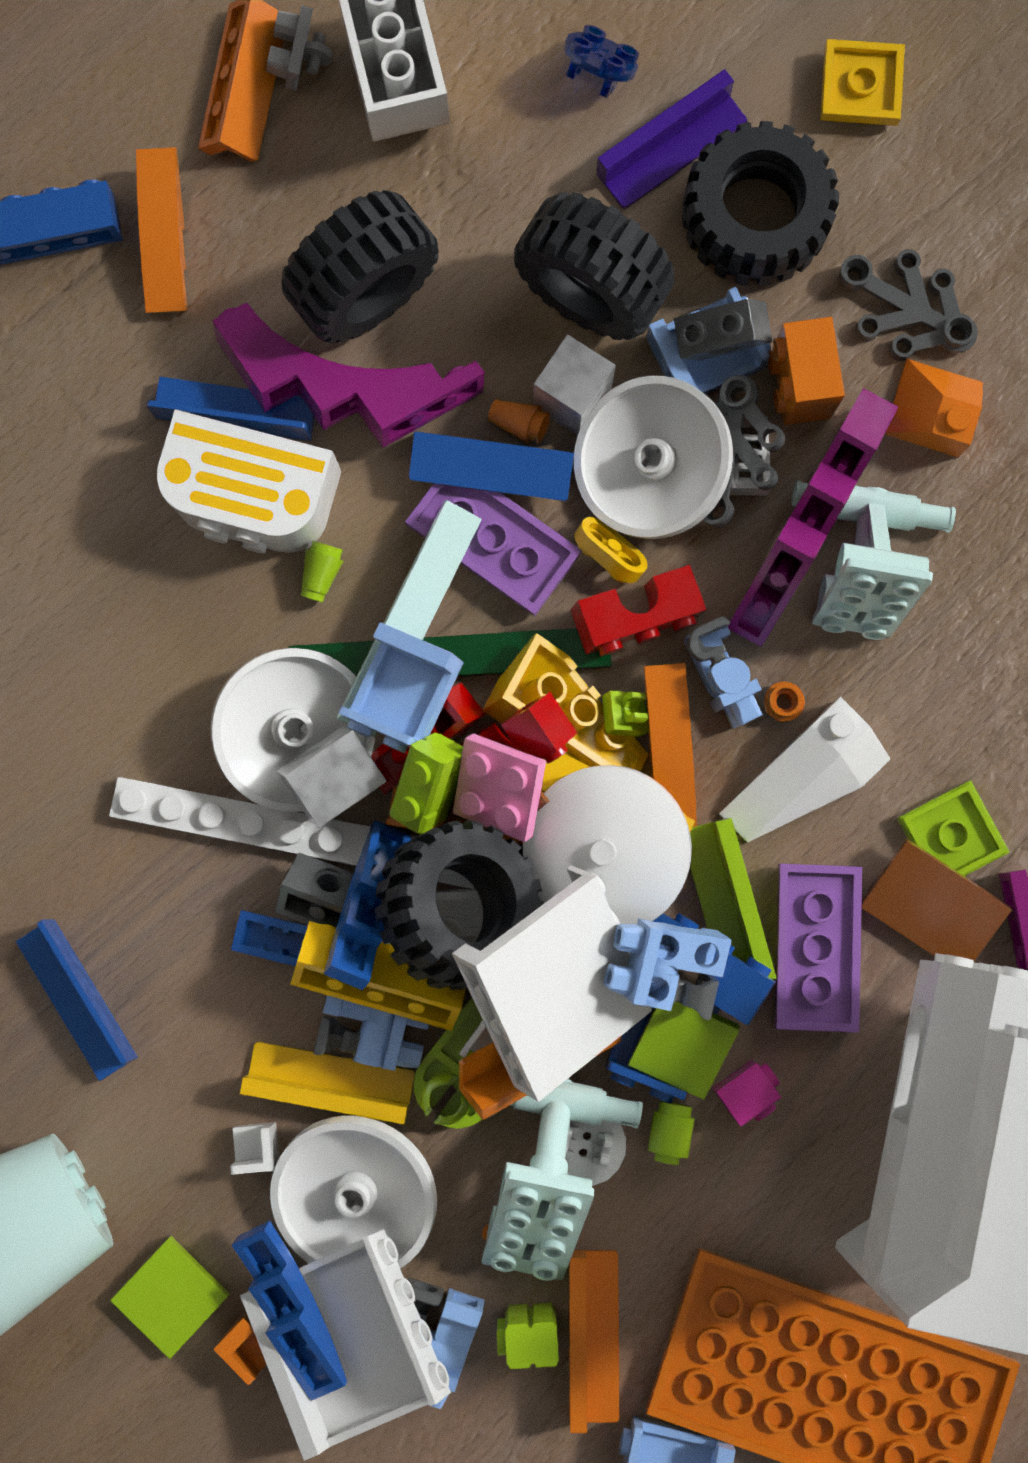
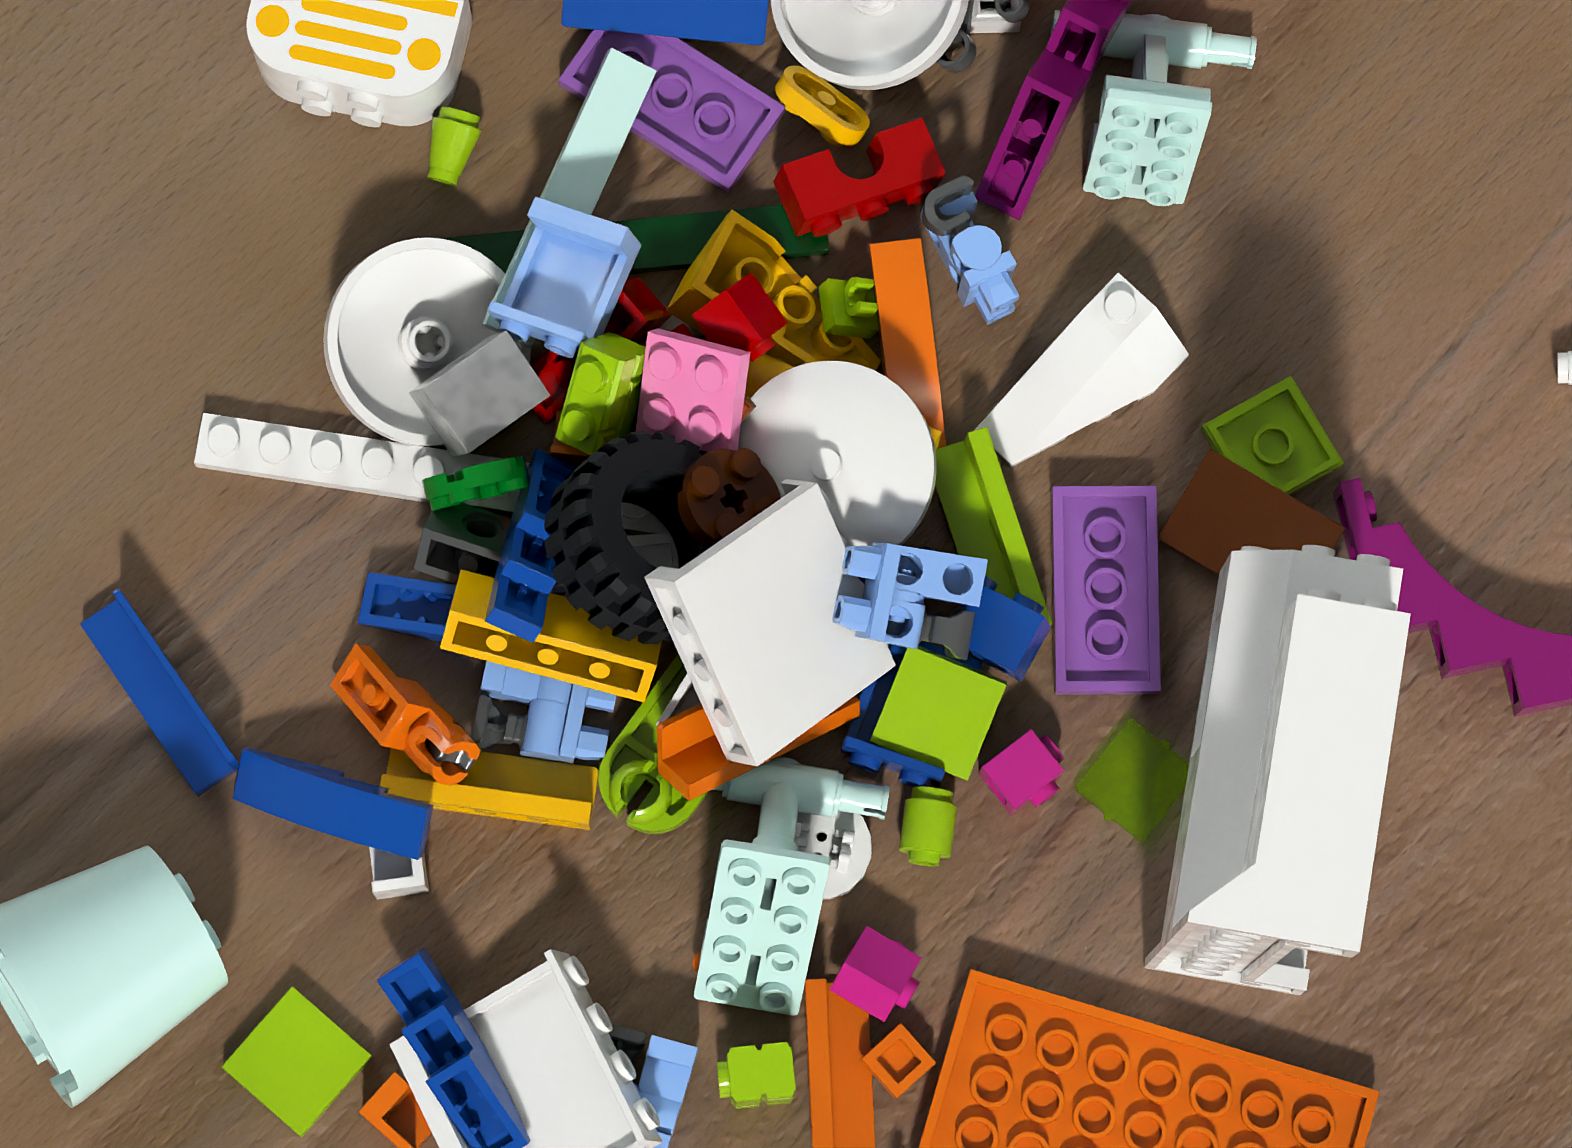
camera: 10 degrees left, 5 degrees down
(202, 1100) = (332, 803): none -> blue slope
(263, 1031) = (404, 716): none -> orange plate
(313, 851) = (476, 482): none -> green plate
(350, 1182) = (520, 891): white dish -> none
(504, 870) = (707, 483): none -> reddish brown plate
(627, 1252) = (877, 974): none -> dark pink brick
(639, 1320) = (897, 1061): none -> orange plate
(796, 701) = (1050, 272): orange plate -> none
(835, 1098) = (1135, 780): none -> clear neon green piece

